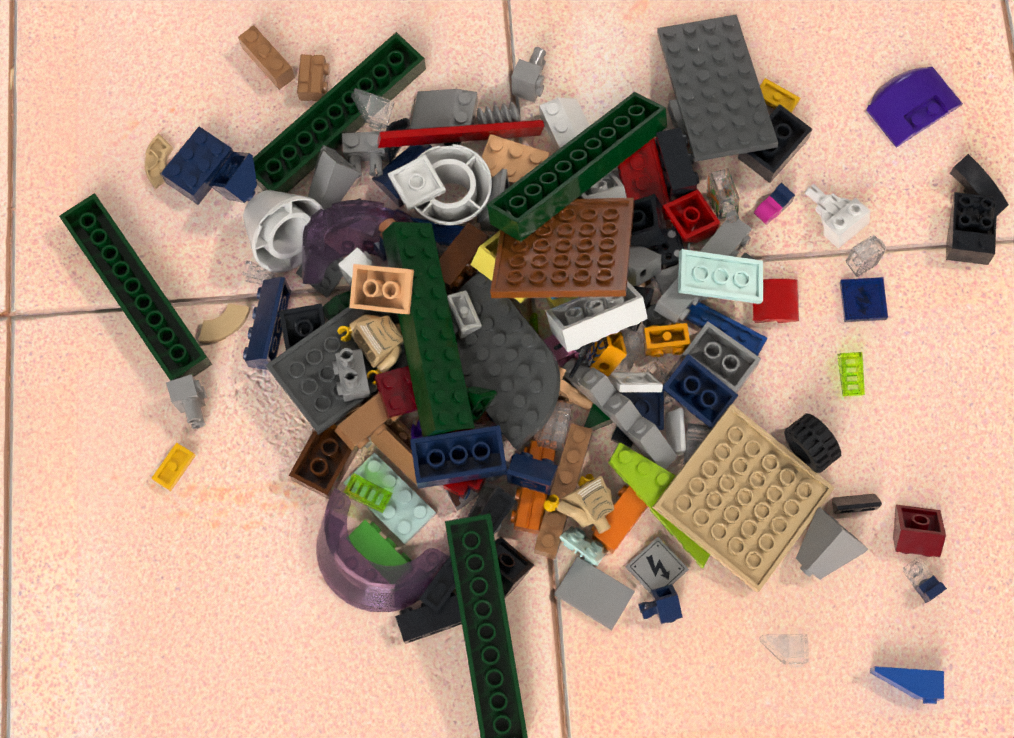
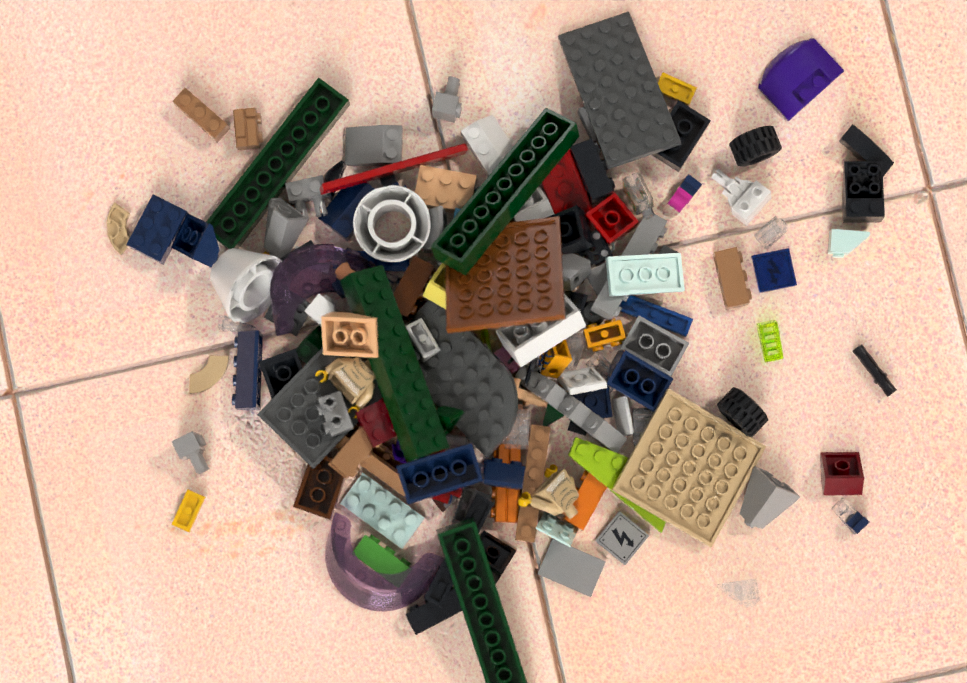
camera: 10 degrees left, 10 degrees up
(135, 289) = (123, 356): dark green brick -> none
(370, 486) = (345, 511): clear neon green slope -> none
(373, 108) = (311, 158): clear slope -> none
(416, 182) = (363, 227): white tile -> none
(497, 115) = (424, 144): light grey piece -> none
(664, 604) = (632, 569): dark blue brick -> none
(779, 302) = (699, 284): red slope -> none
(816, 299) = (732, 278): none -> medium nougat brick
(856, 503) = (785, 456): black slope -> none
(858, 162) = (755, 146): none -> black tyre
(917, 683) = (854, 605): blue slope -> none
(947, 277) = (842, 241): none -> light aqua slope
(964, 417) = (872, 367): none -> black pin

